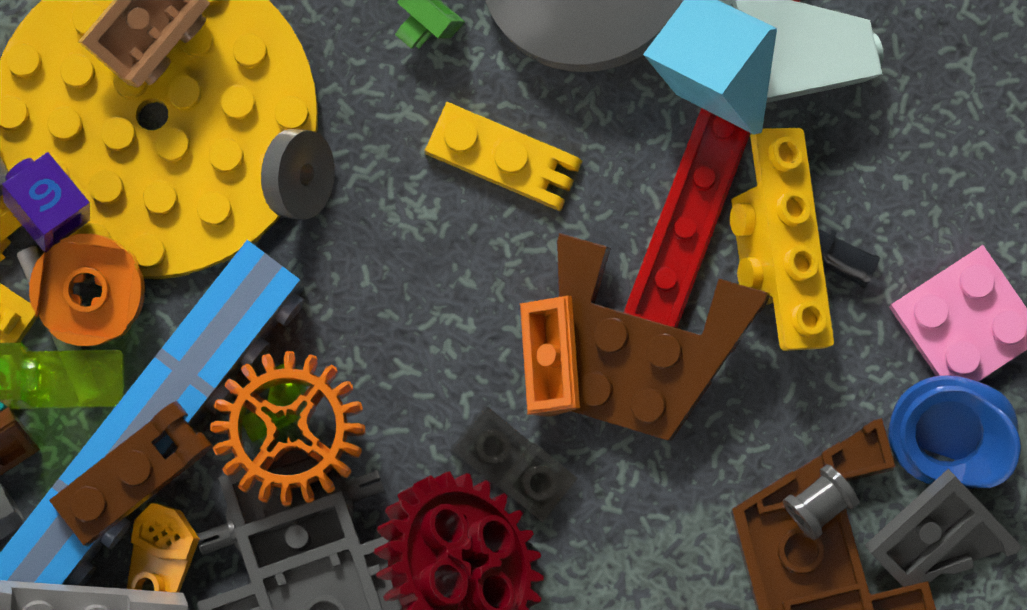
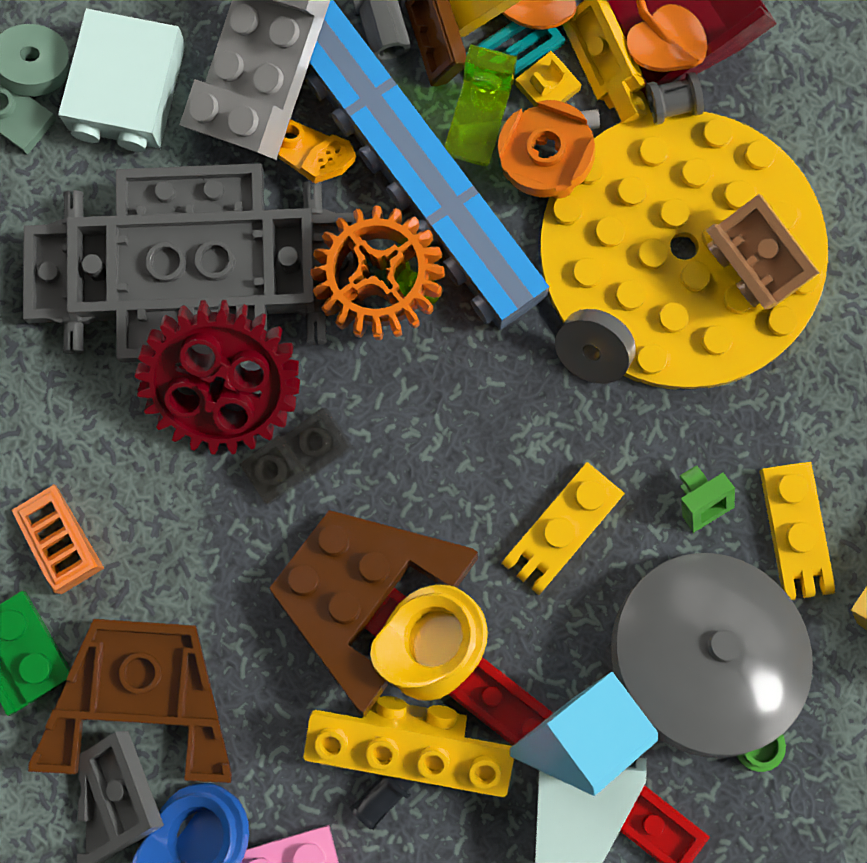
camera: 105 degrees right, 0 degrees up
(45, 200) = (630, 131): dark purple brick -> none
(129, 475) = (379, 136): reddish brown plate -> none
(549, 356) = (373, 510): orange slope -> none
(669, 250) = (431, 642): none -> yellow piece
(821, 501) = (169, 701): dark grey bush -> none

